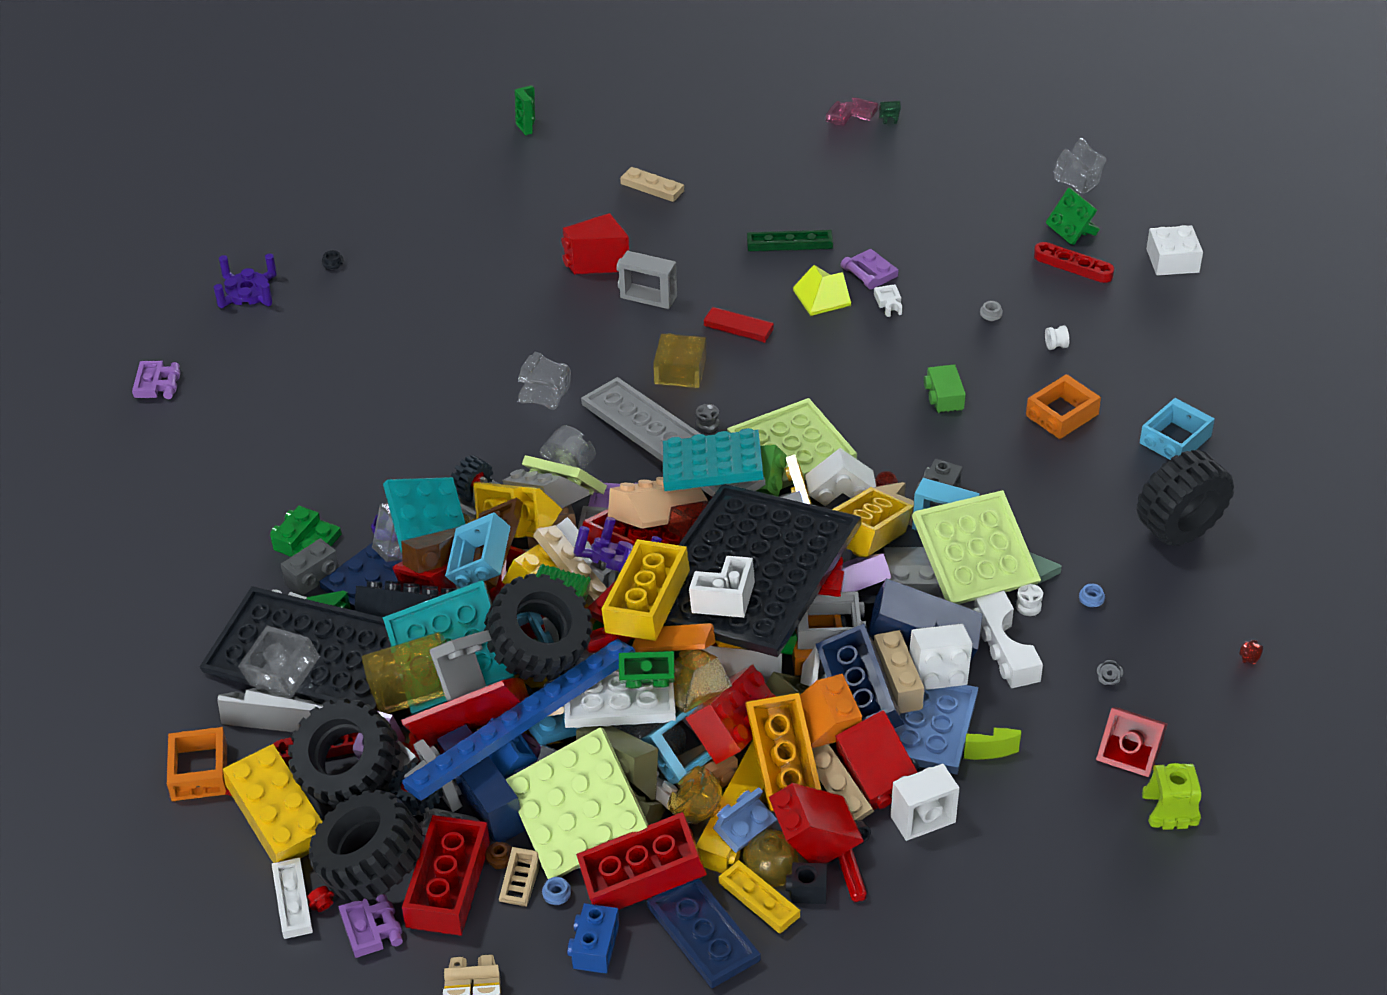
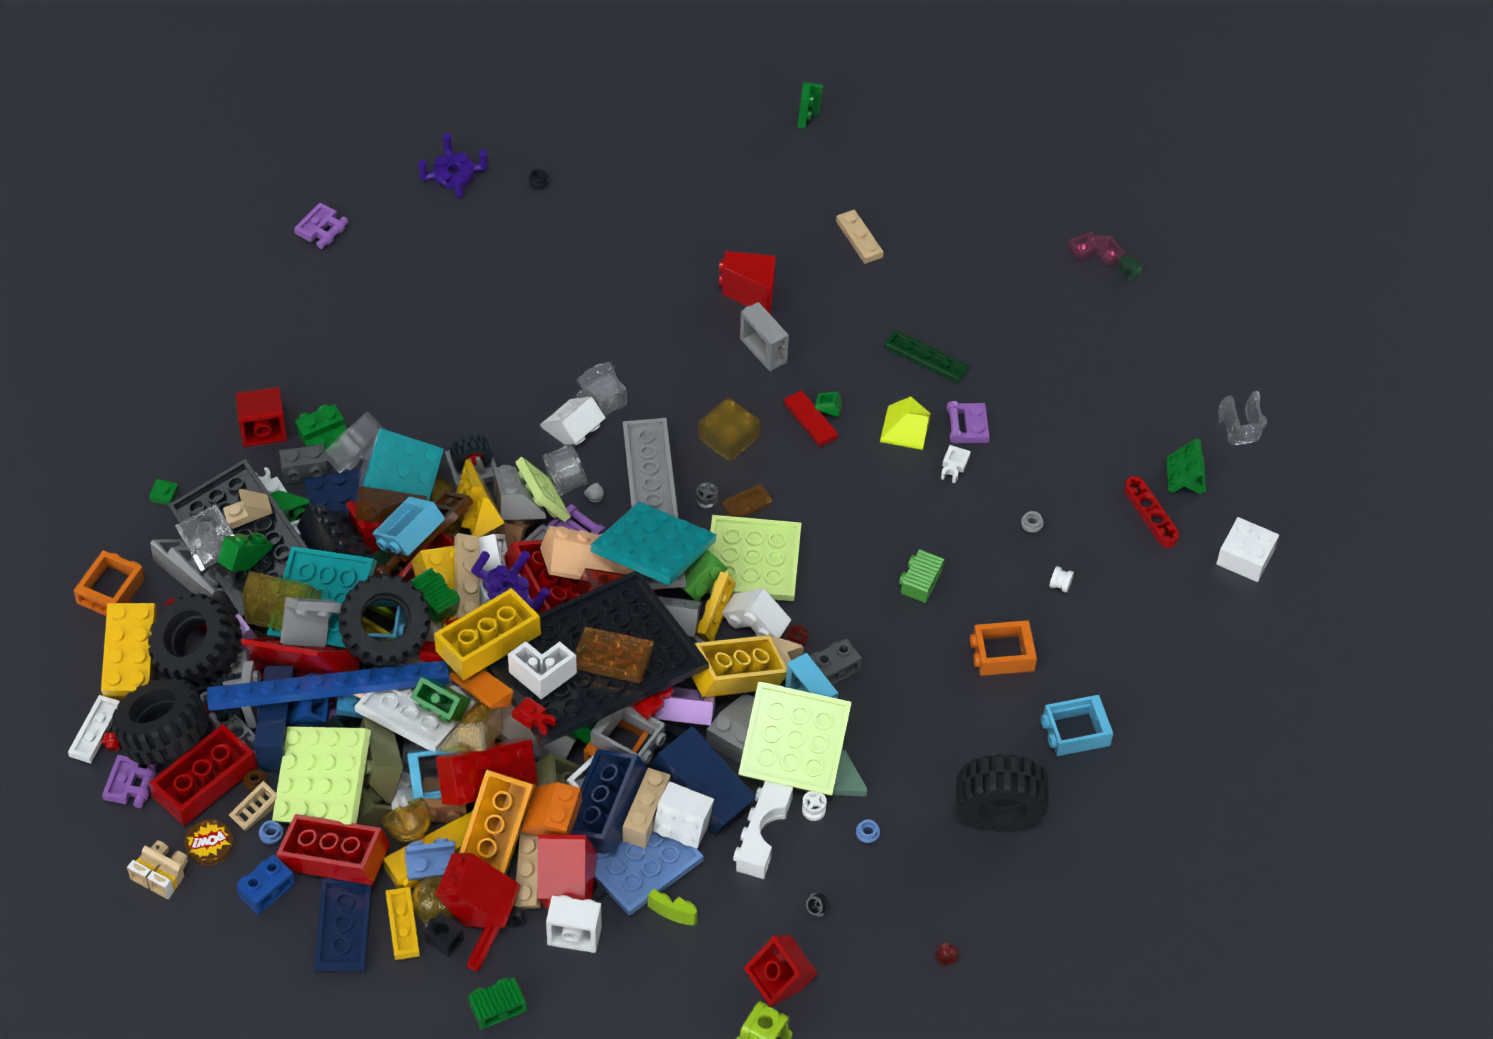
camera: 30 degrees right, 10 degrees up
(183, 660) = (163, 492): none -> green plate
(234, 549) = (261, 417): none -> red slope
(299, 616) = (250, 508): none -> tan slope
(327, 654) = (243, 551): none -> green slope
(352, 521) = (353, 443): none -> clear brick
(500, 934) = (208, 842): none -> tile
(535, 416) = (574, 420): none -> white slope
(606, 463) = (594, 492): none -> light grey hinge
(744, 304) = (829, 403): none -> green slope
(746, 406) = (747, 501): none -> clear orange plate
(748, 633) = (531, 713): none -> red plate
(777, 548) = (613, 654): none -> clear orange plate
(913, 912) = (497, 1002): none -> green brick

